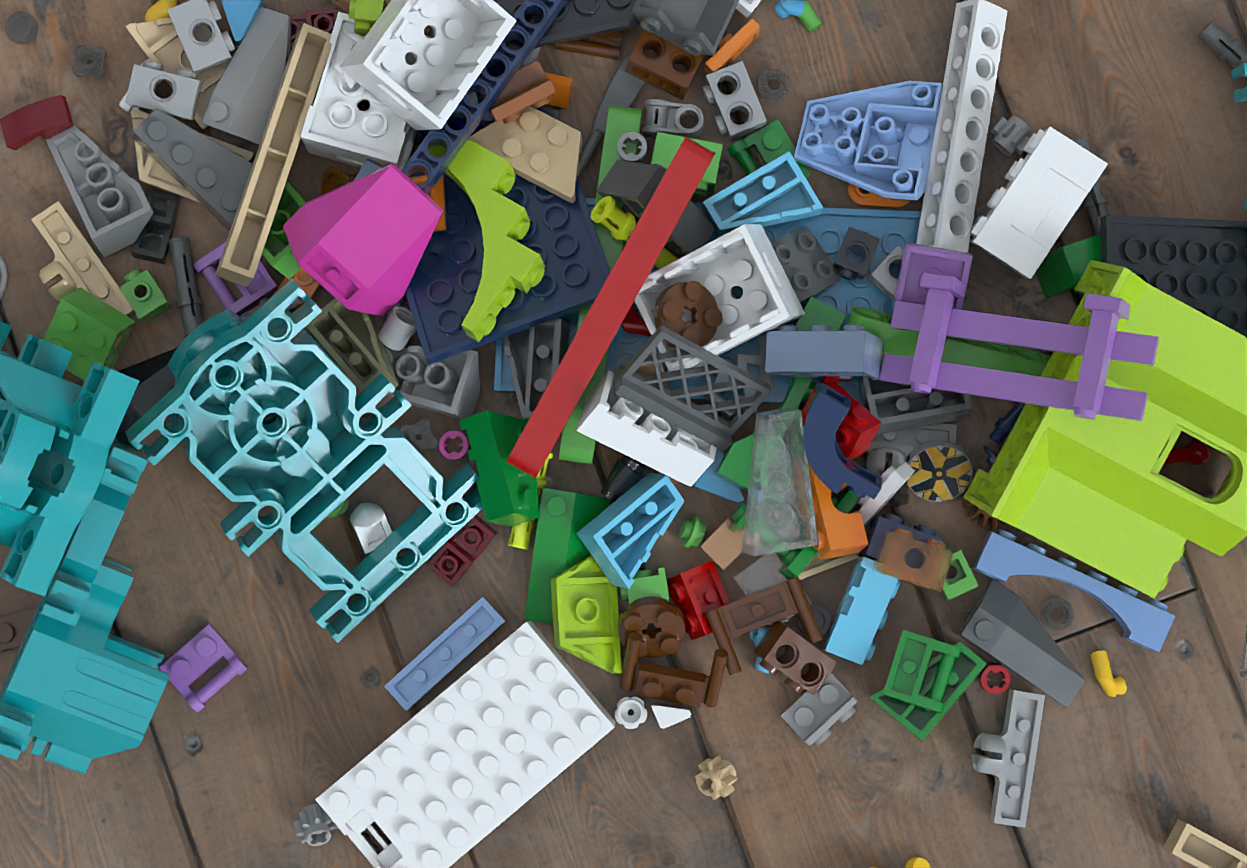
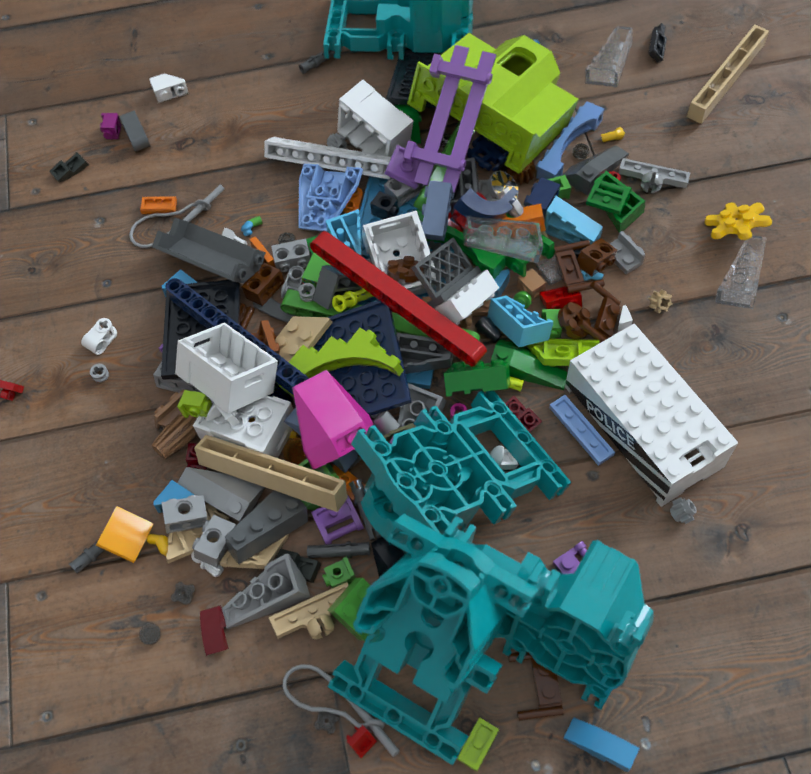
camera: 85 degrees left, 25 degrees down
(892, 562) = (551, 185): clear orange brick -> none

